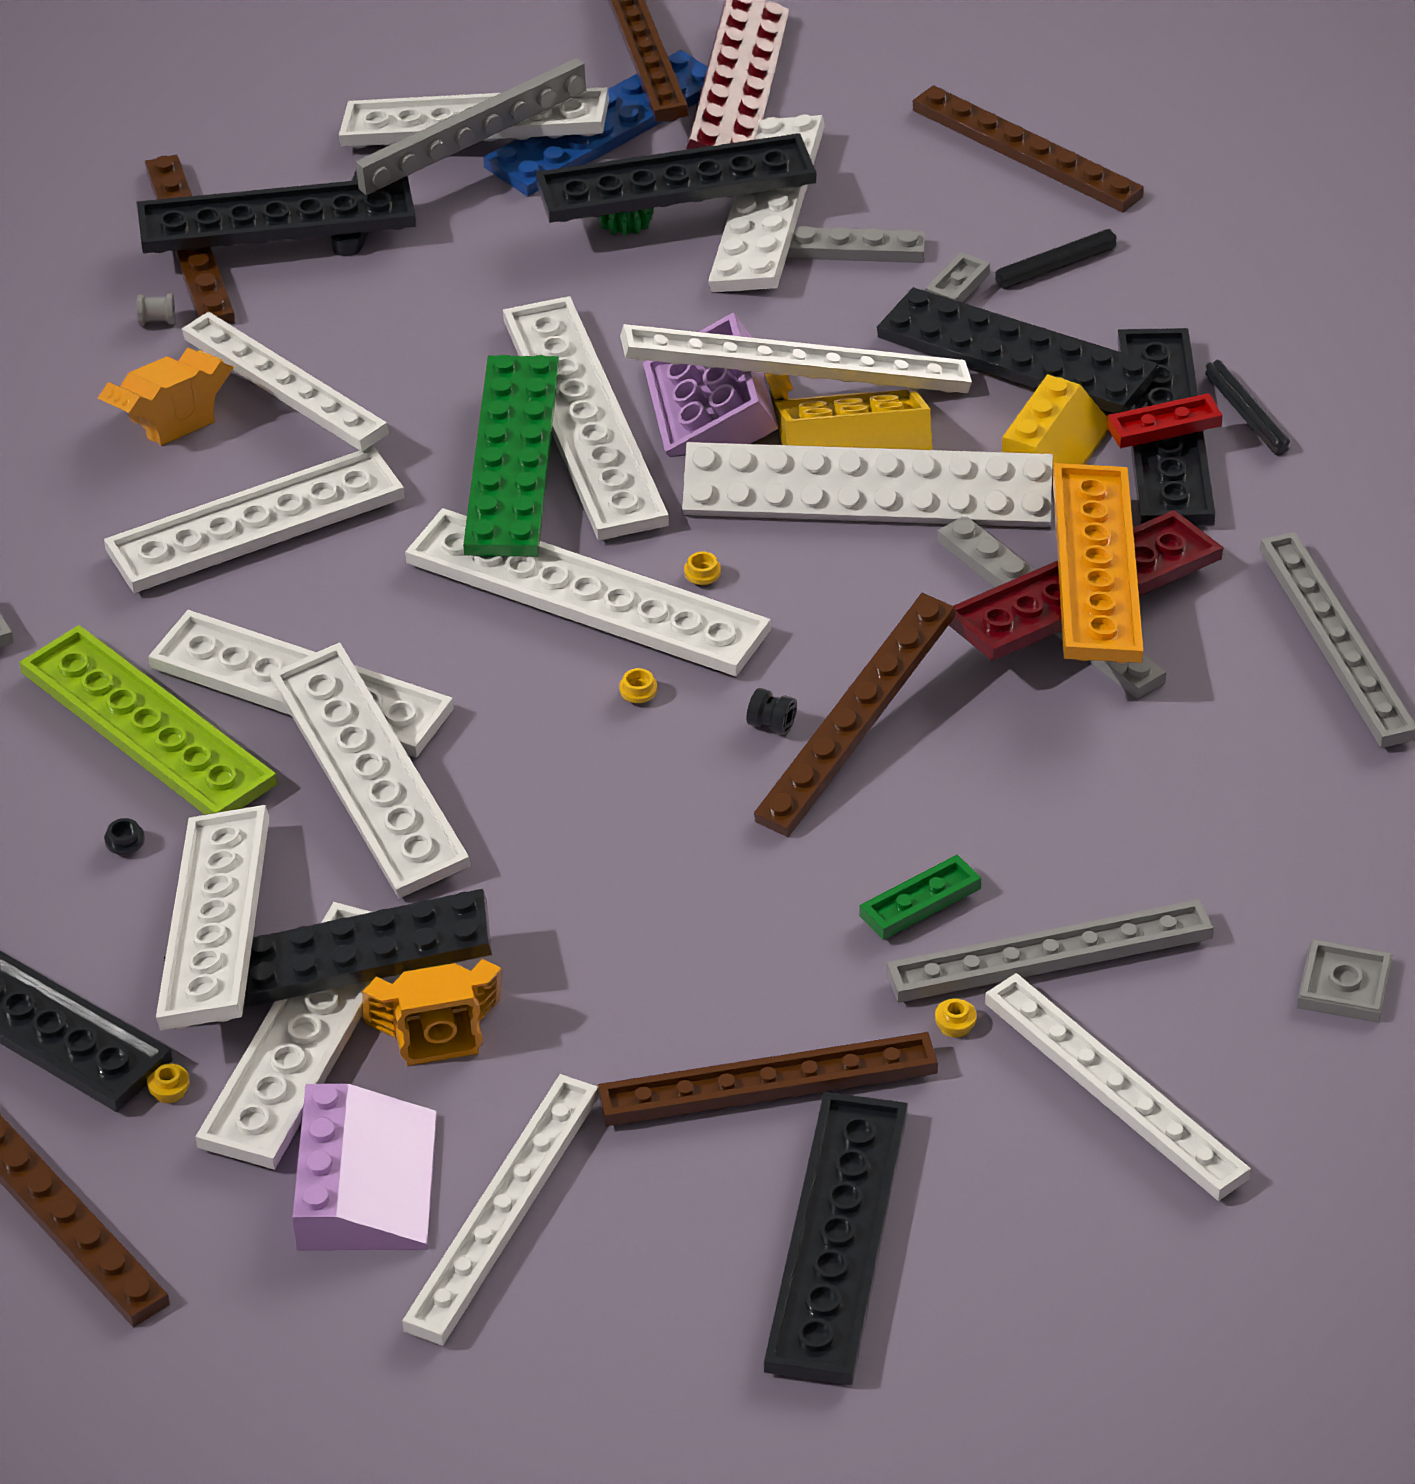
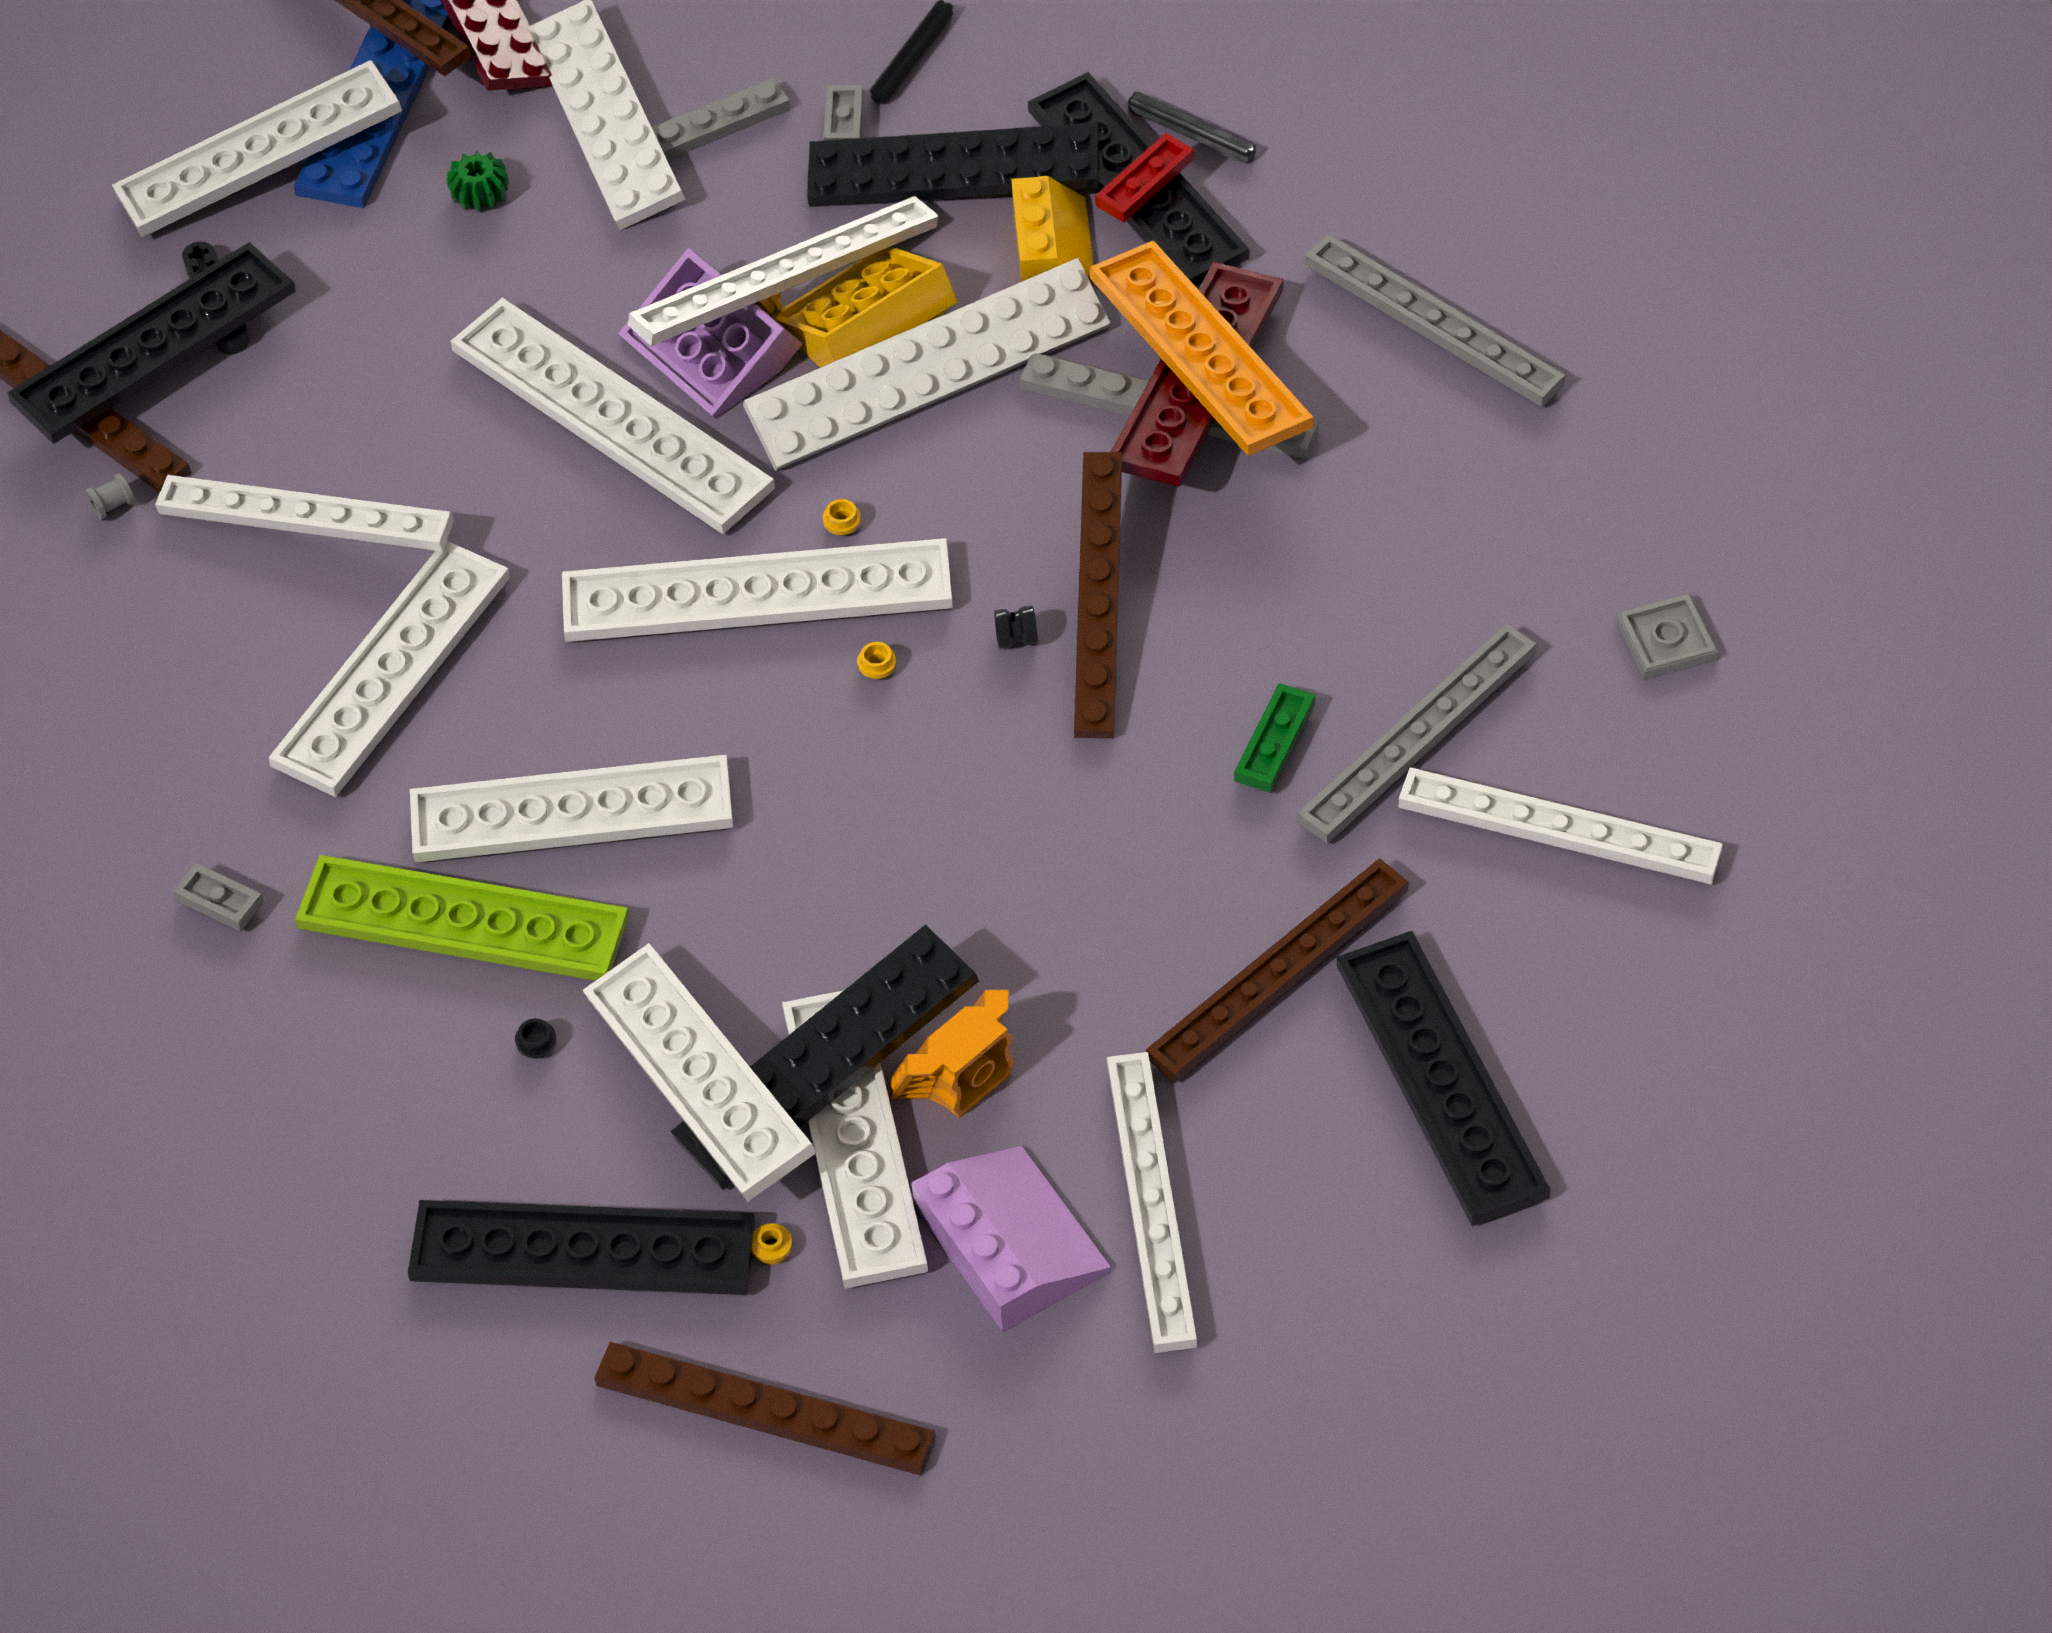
camera: 30 degrees left, 10 degrees up
(170, 395) = (208, 577): light orange slope -> none
(370, 770) = (712, 861): white plate -> none
(470, 126) = (280, 163): light grey plate -> none
(512, 456) = (587, 488): green plate -> none
(675, 177) = (515, 130): black plate -> none
(955, 1017) = (1382, 840): yellow plate -> none

